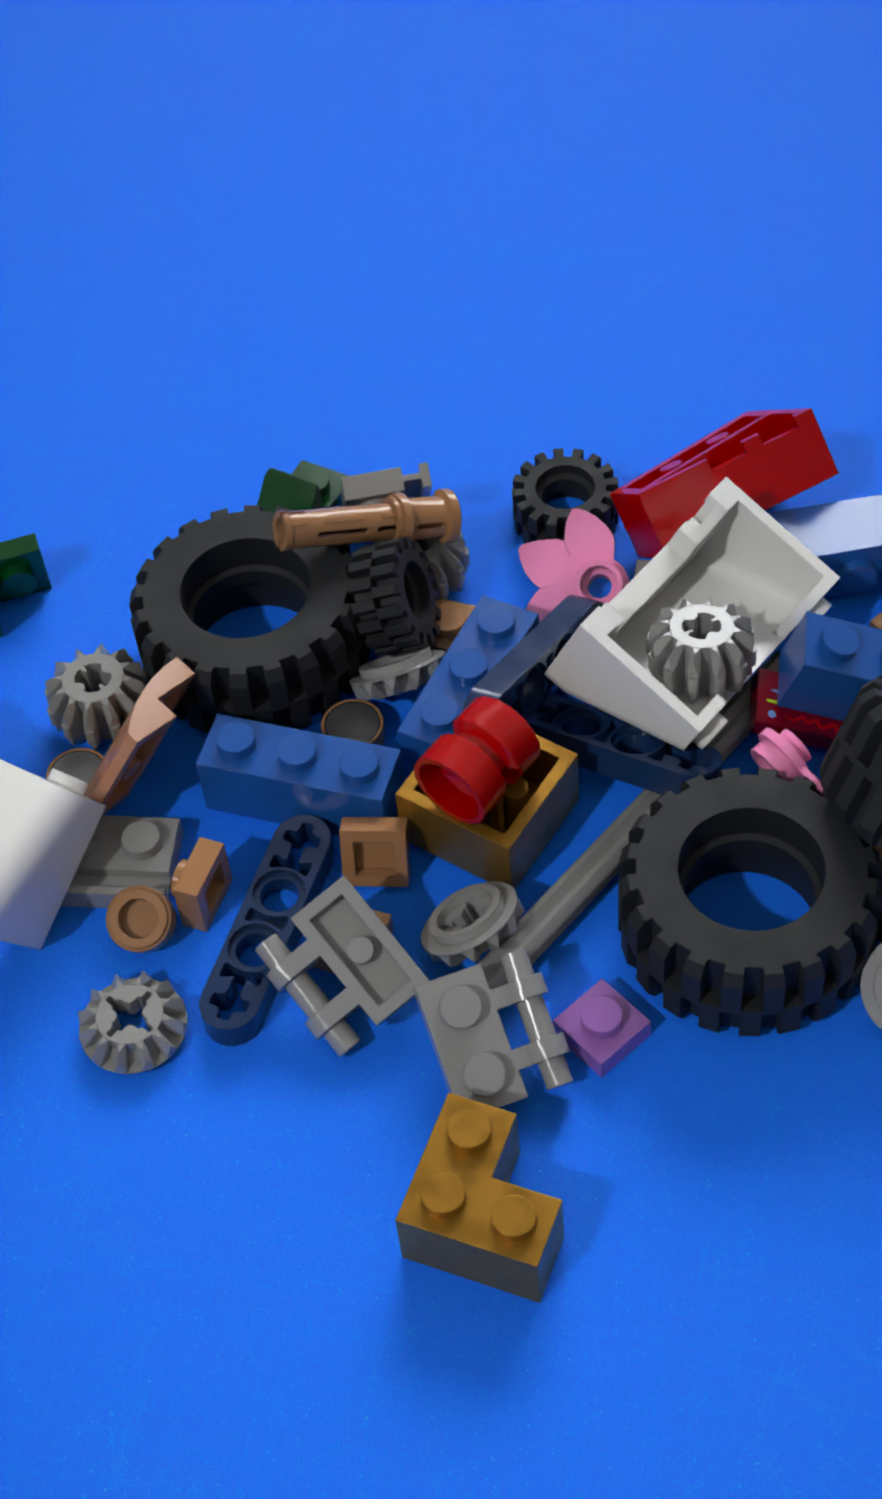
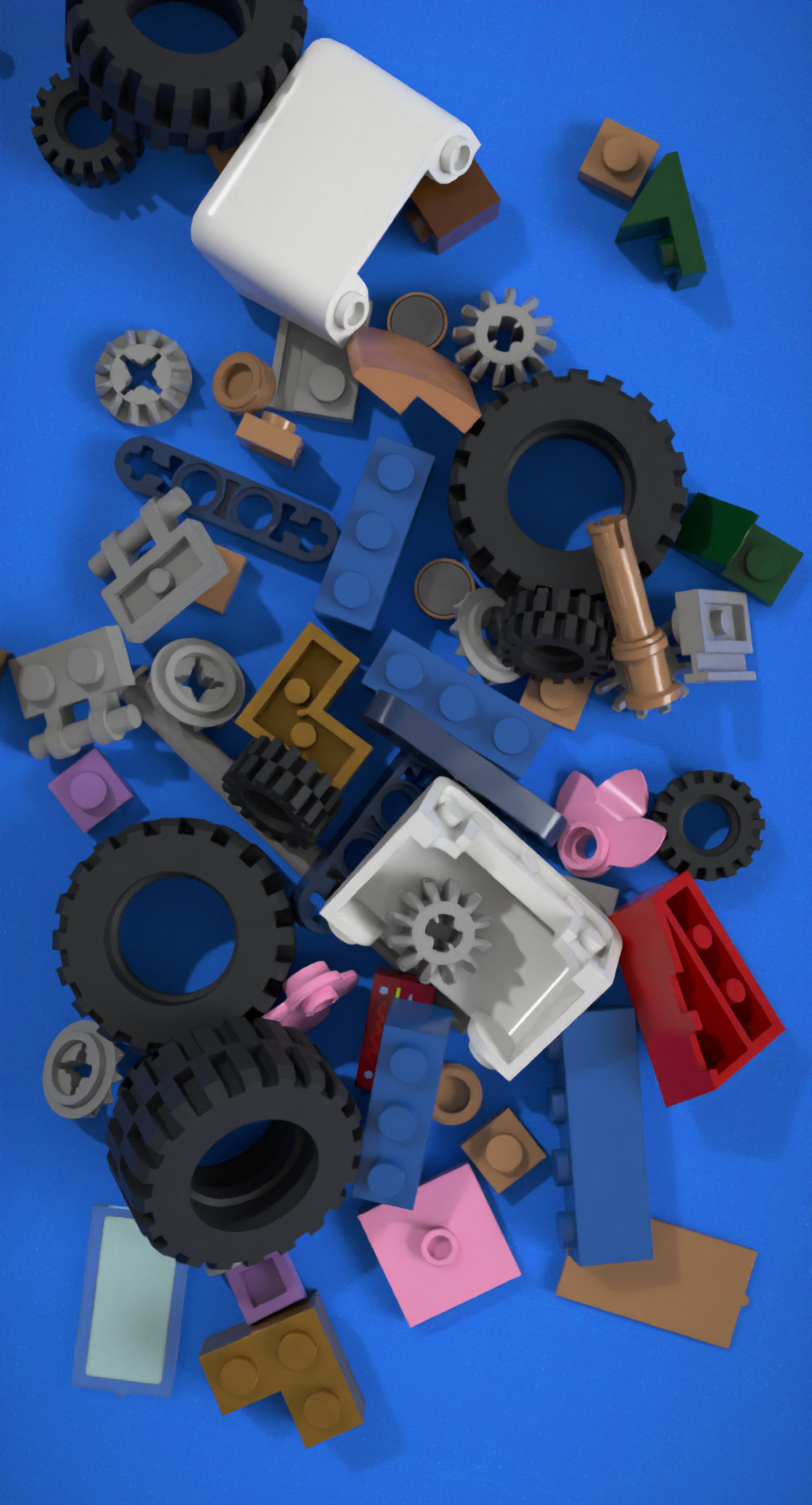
camera: 85 degrees right, 35 degrees up
(375, 851) = (287, 601): medium nougat plate -> none
(473, 766) = (307, 698): red wheel -> none
(578, 799) = (282, 792): none -> black tyre

